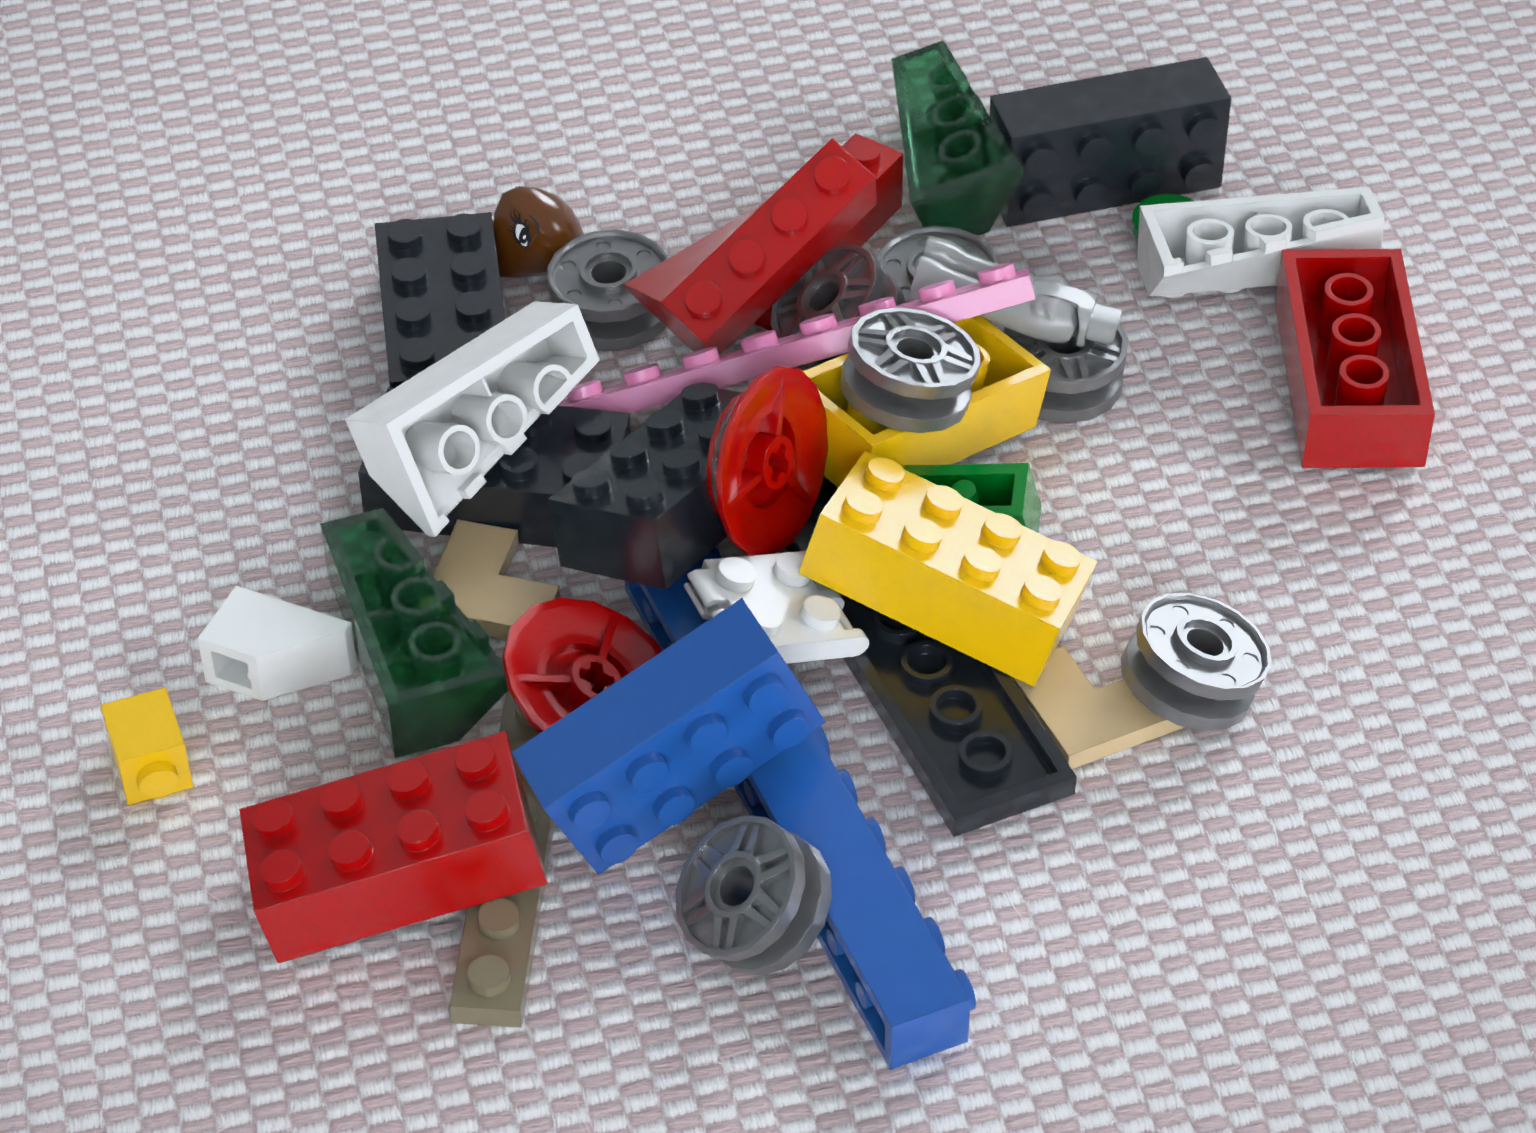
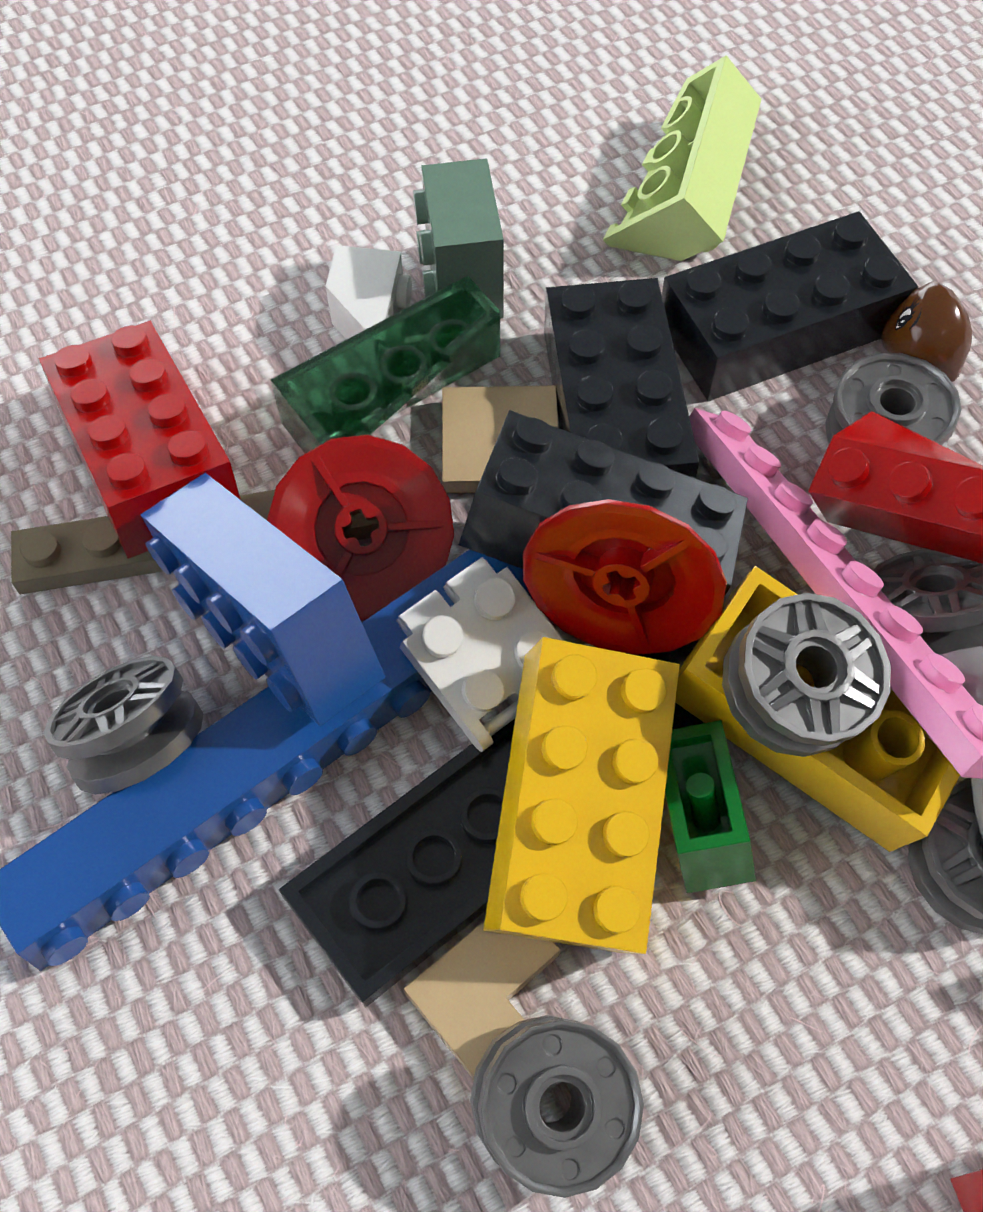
camera: 75 degrees right, 15 degrees up
(147, 746) = (240, 259): yellow brick -> none
(234, 351) = (692, 169): none -> yellowish green wedge
(249, 528) = (461, 228): none -> sand green brick
(459, 416) = (617, 325): white wedge -> none

